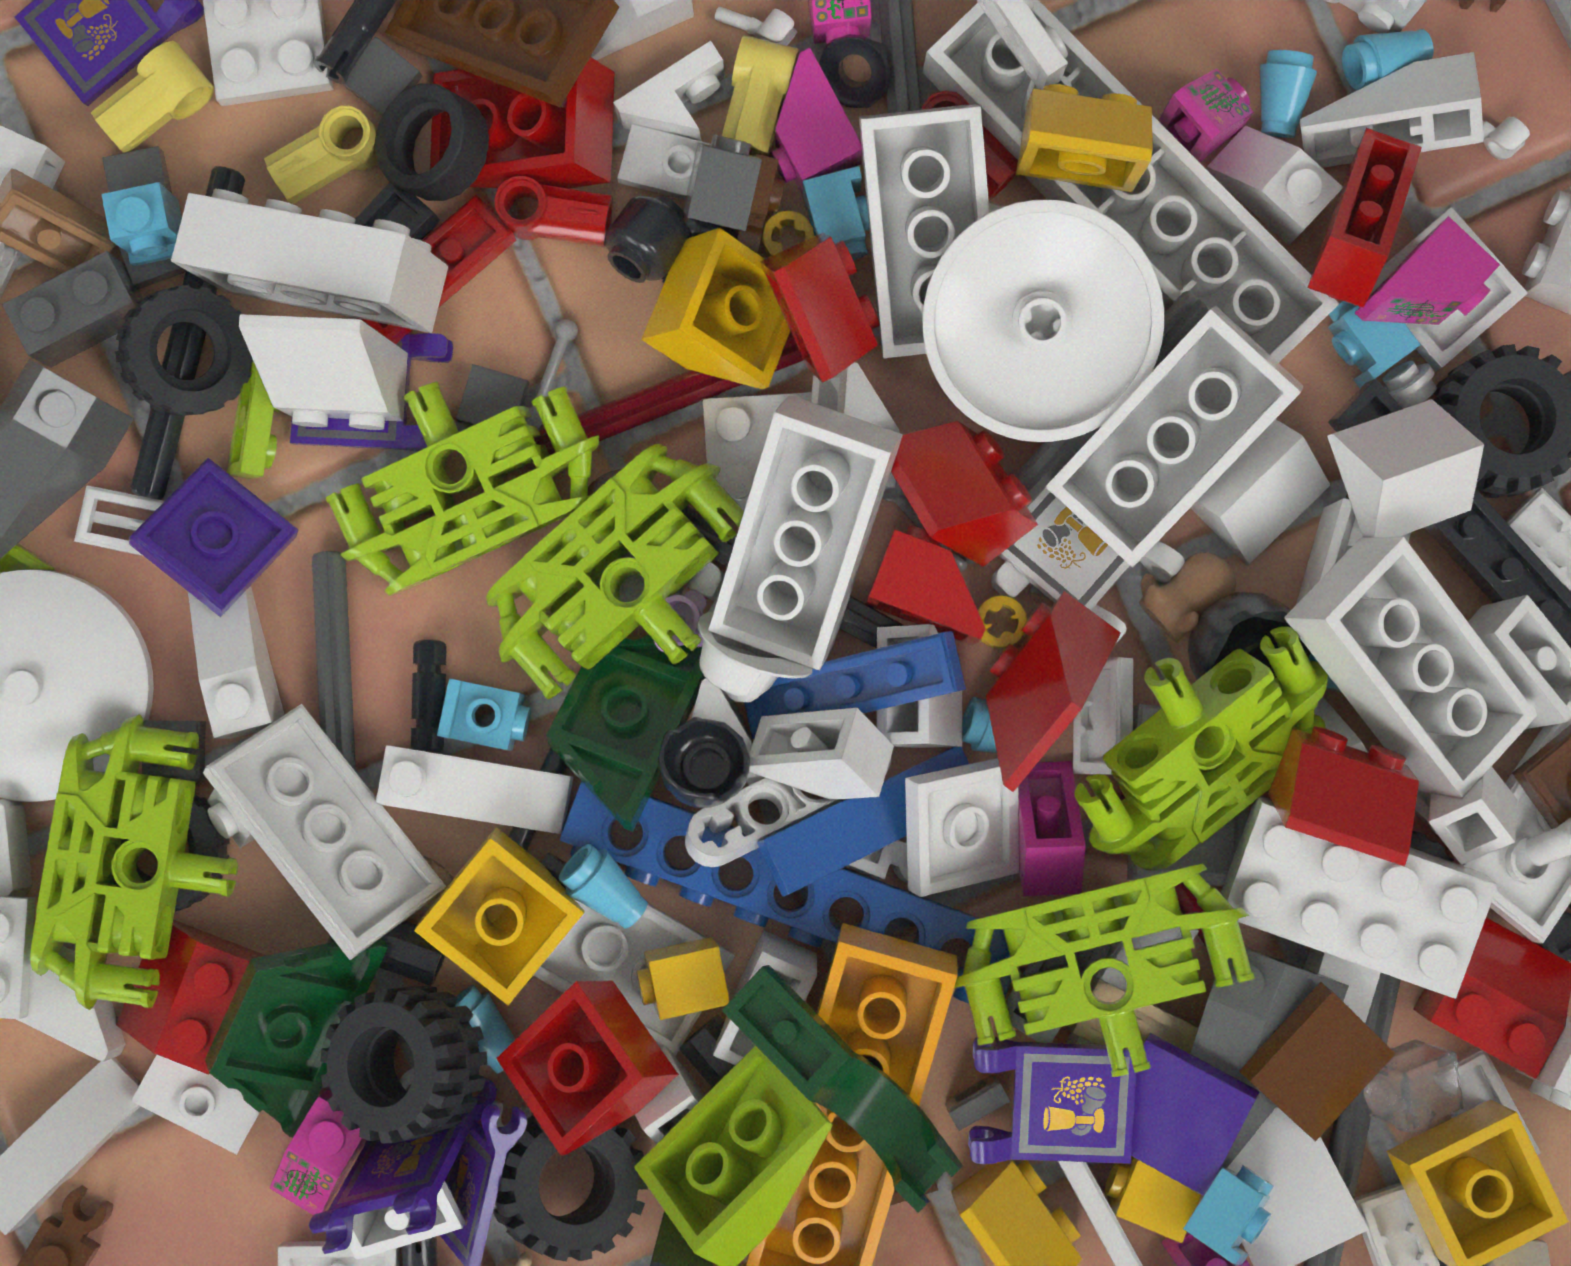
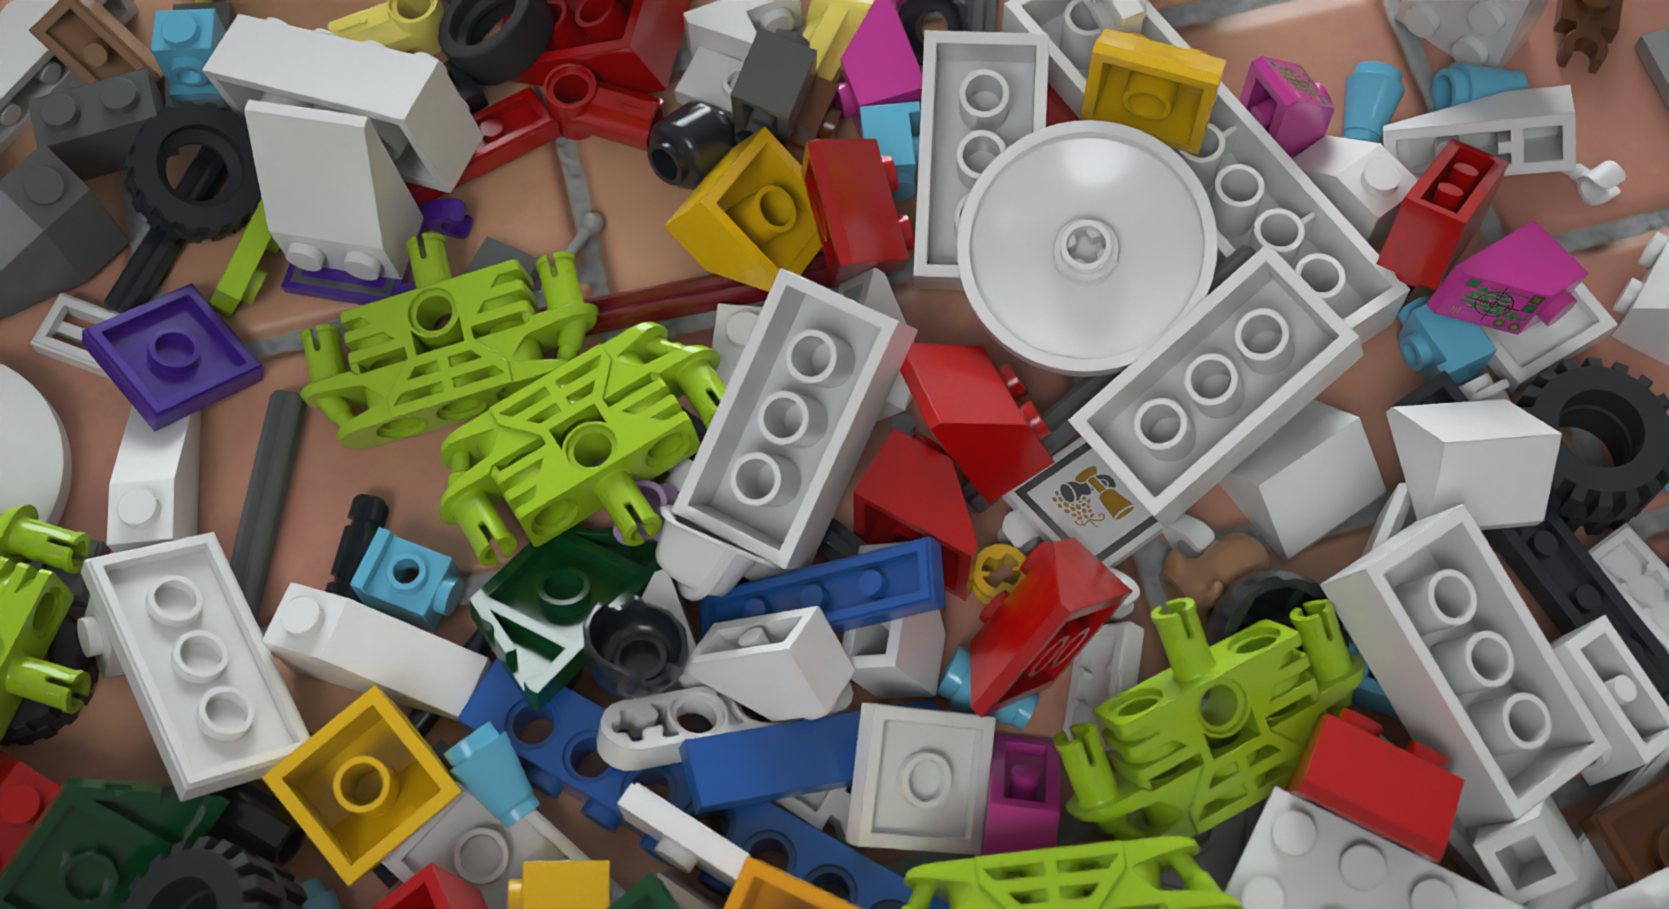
camera: 10 degrees right, 20 degrees down
(778, 921) = (680, 837): none -> white plate

